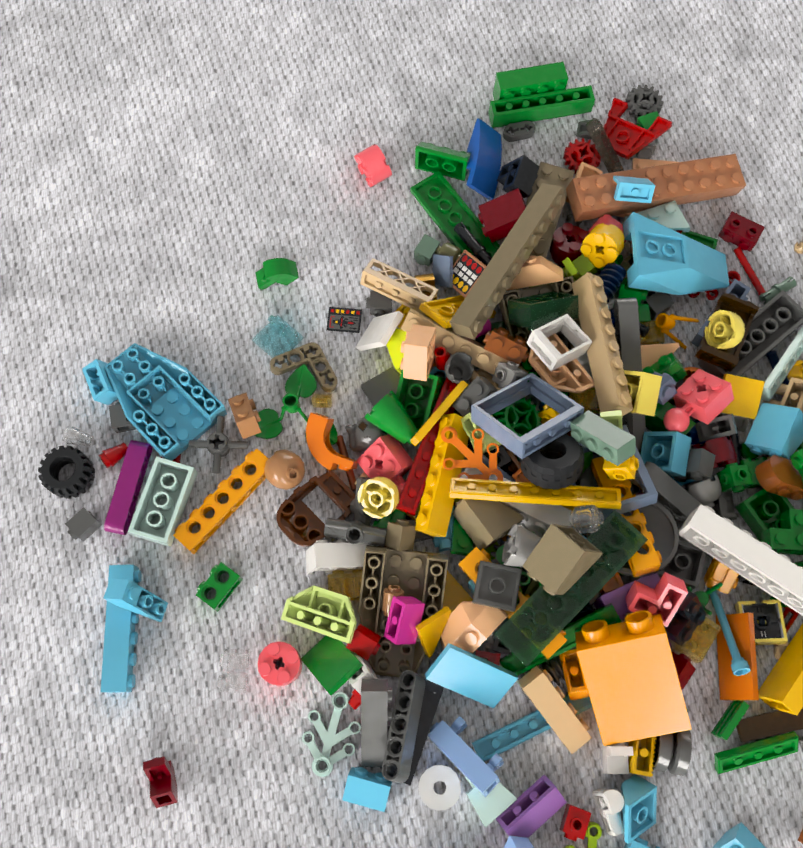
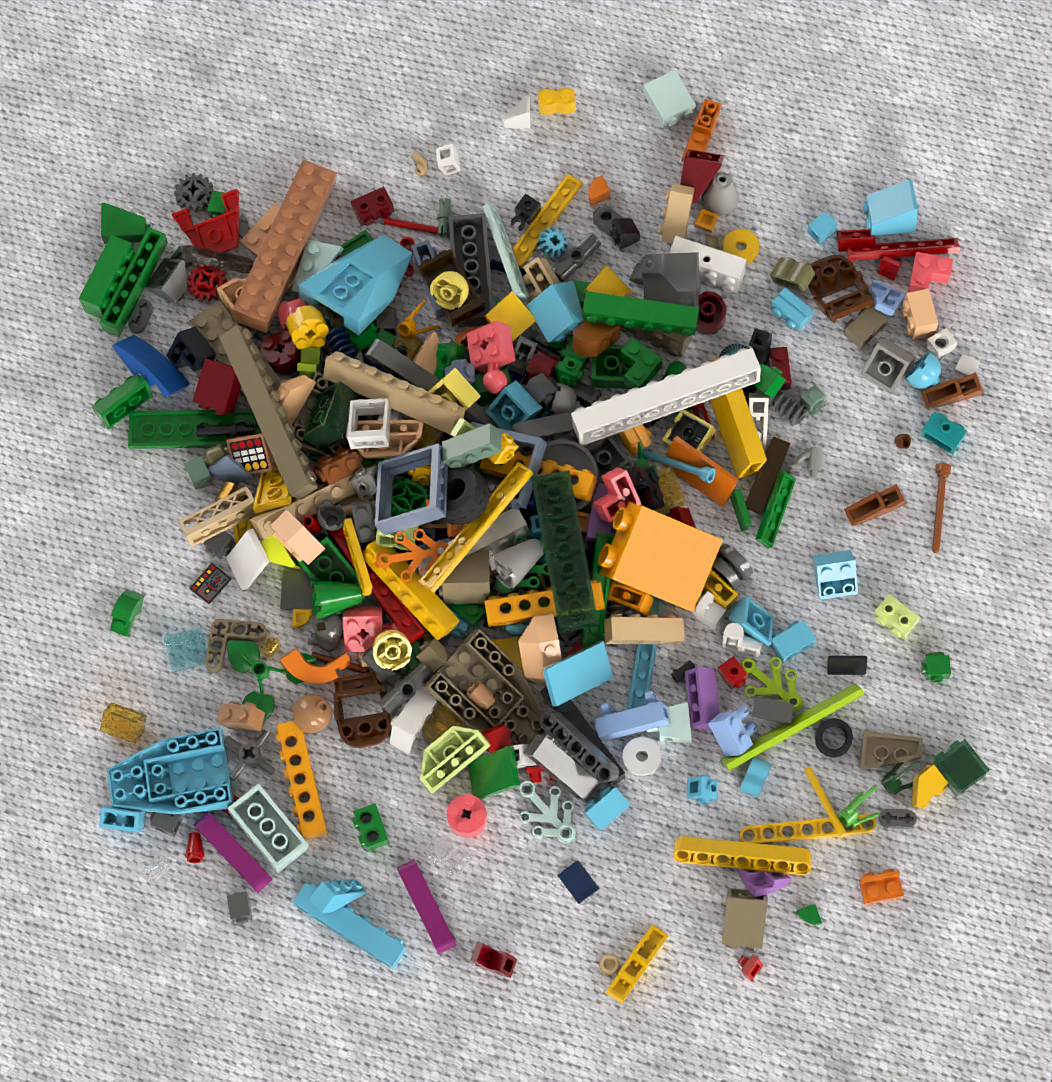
camera: 50 degrees left, 0 degrees up
(56, 461) = (192, 908): black tyre -> none
(177, 684) = (426, 906): none -> magenta beam
(183, 330) = (123, 722): none -> clear yellow brick
(285, 809) = (578, 882): none -> dark blue piece
(363, 406) = (300, 617): none -> yellow tile
(373, 164) = (83, 462): coral brick -> none
(402, 618) = (501, 694): dark pink brick -> none
(431, 630) = (522, 679): yellow tile -> none
(497, 586) = (525, 605): dark grey tile -> none
(538, 770) = (679, 674): none -> black pin
(560, 559) = (539, 541): dark tan slope -> none
(561, 131) = (169, 280): none -> dark grey slope
(579, 69) = (122, 224): none -> green slope
(586, 519) = (523, 502): clear head -> none
(633, 189) = (278, 268): medium azure panel -> none

